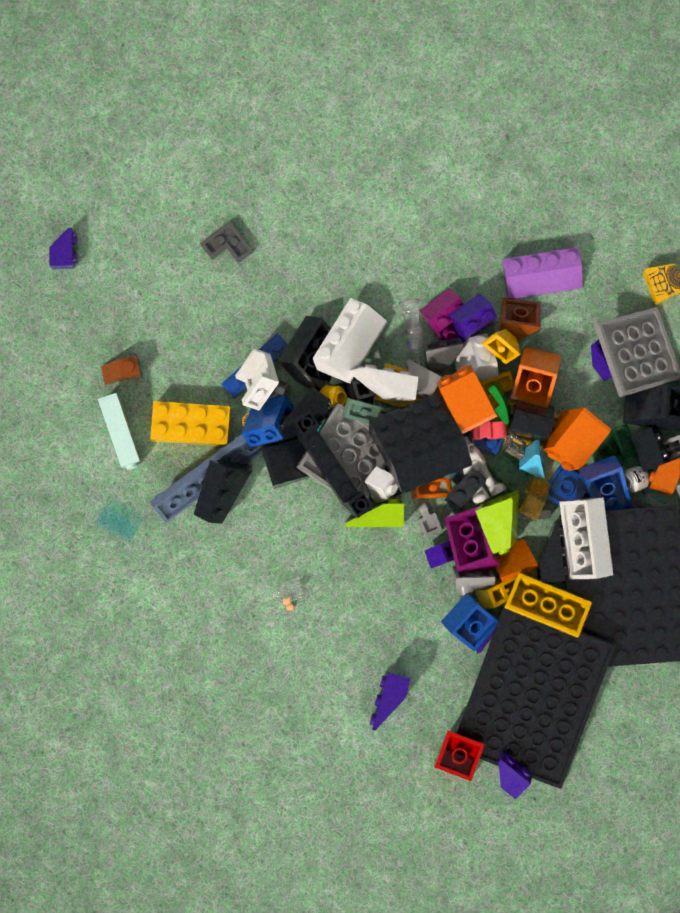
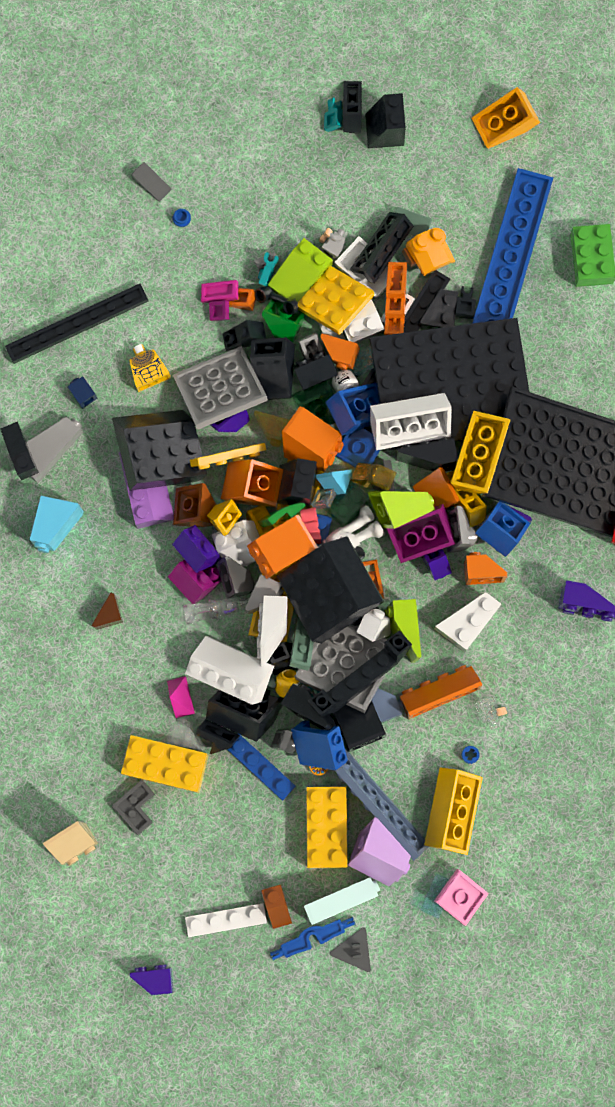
camera: 90 degrees left, 5 degrees down
(73, 441) = (354, 951): none -> dark grey piece
(86, 393) = (303, 943): none -> blue piece
(113, 322) = (226, 920): none -> white plate
(113, 546) = (461, 897): none -> bright pink tile
(159, 470) = (379, 854): none -> lavender slope
(195, 547) = (453, 810): none -> yellow slope
(196, 180) = (71, 843): none -> tan slope
(220, 489) = (393, 787): black wedge -> none
(253, 567) = (474, 759): none -> blue bush
(259, 377) = (276, 758): white panel -> none
(265, 273) = (164, 764): none -> yellow brick
(288, 325) = (220, 736): none -> black slope
(291, 295) = (184, 735): none -> clear slope
(303, 491) = (387, 705): none -> sand blue slope
(312, 544) = (440, 692): none -> orange slope
(330, 293) = (180, 697): none -> dark pink slope
(379, 580) = (469, 621): none -> white wedge
(417, 229) = (109, 613): none -> reddish brown slope
(428, 523) = (406, 579): light grey plate -> none
(430, 597) = (482, 570): none -> orange slope
(463, 491) = (372, 546): black hinge -> none
(511, 179) = (53, 522): none -> medium azure slope
(567, 361) = (234, 454): none -> yellow plate
(578, 286) = (158, 449): none -> black slope
(586, 148) = (19, 451): none -> black slope
(587, 175) = (52, 445): none -> light grey slope
(595, 400) = (271, 427): none -> clear yellow slope
(645, 215) = (82, 391): none -> dark blue brick

